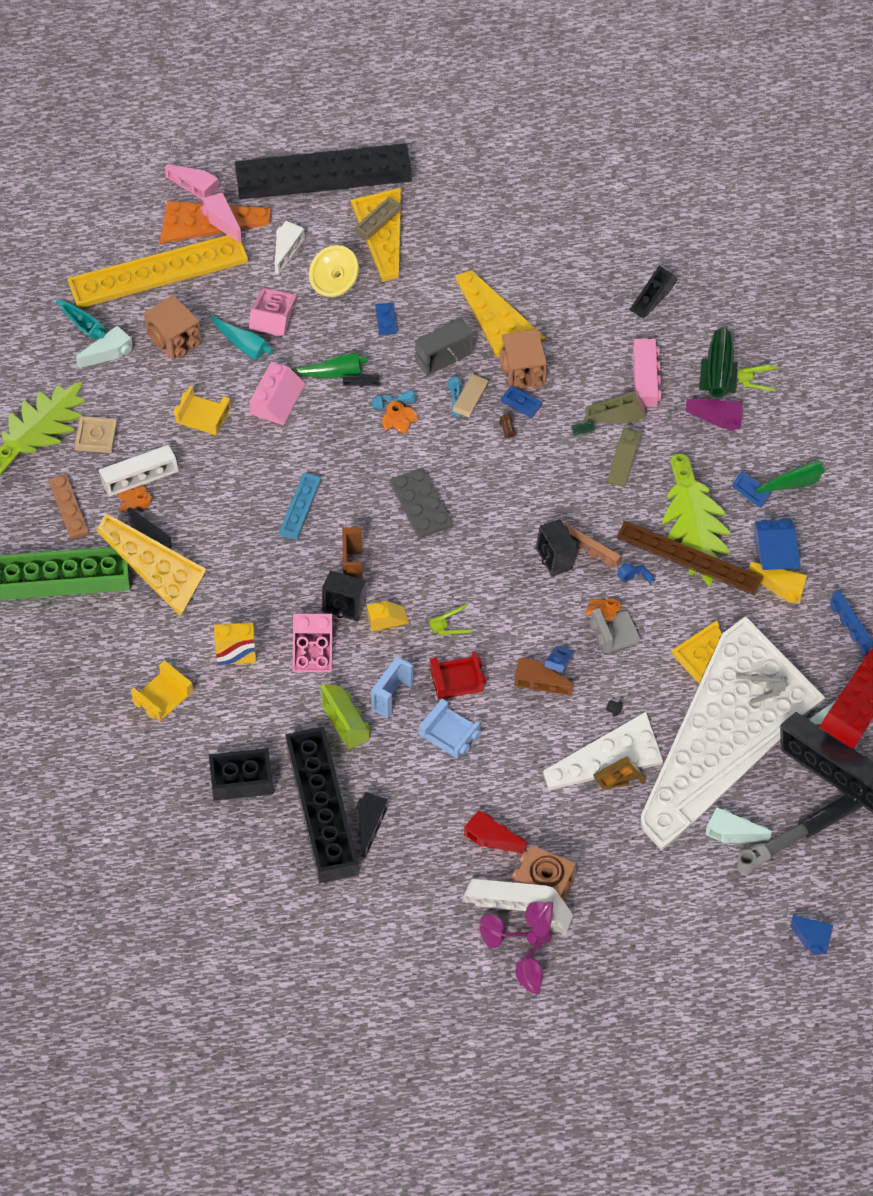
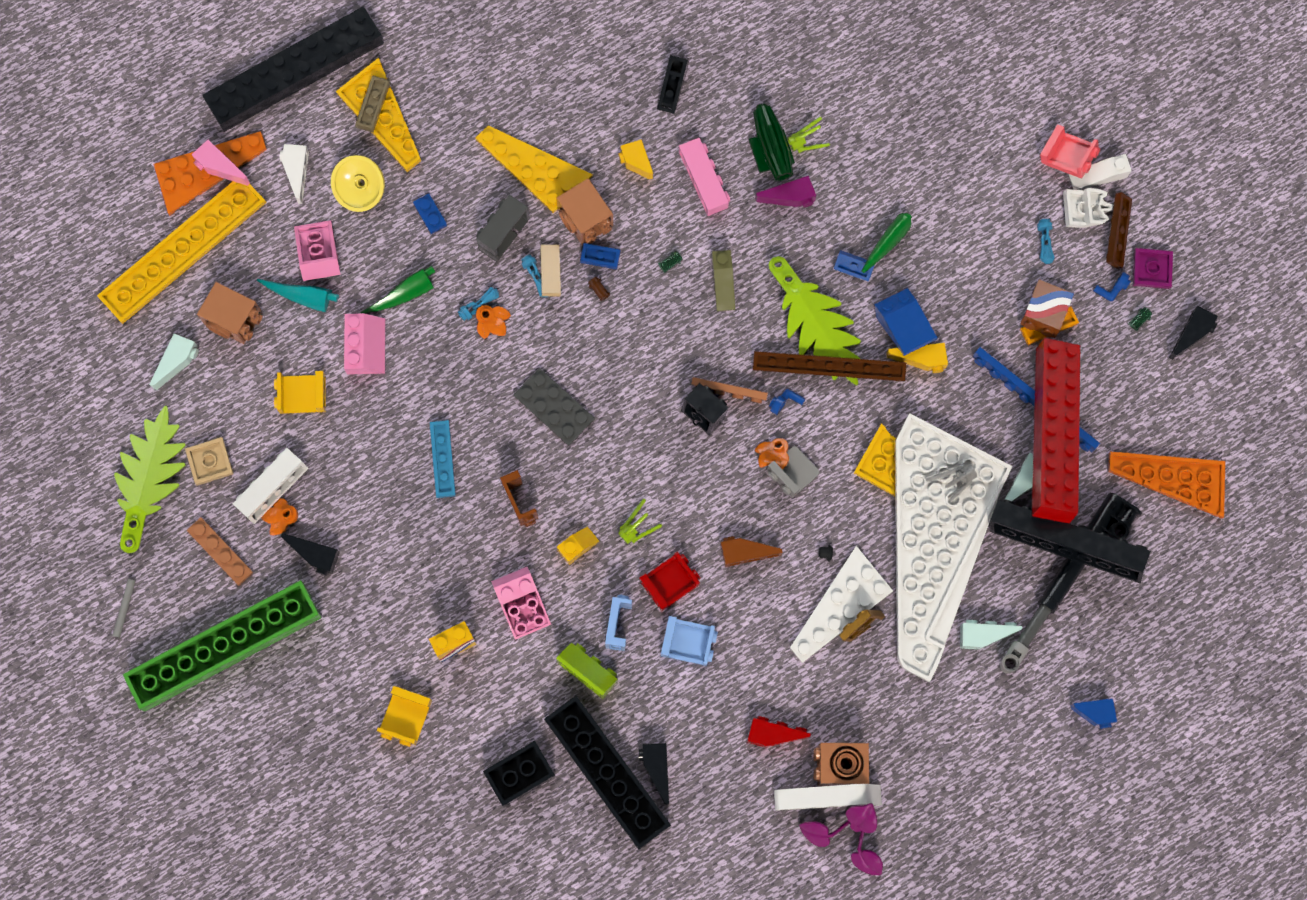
camera: 25 degrees left, 20 degrees up
(83, 320) = (136, 339): teal piece -> none
(159, 566) = (345, 587): yellow wing -> none
(194, 180) = (172, 130): bright pink slope -> none
(343, 595) = (530, 544): black brick -> none
(361, 380) = (437, 294): black pin -> none
(559, 659) = (757, 525): blue plate -> none
(590, 338) = (636, 159): none -> yellow slope
(620, 409) = (695, 229): olive slope -> none

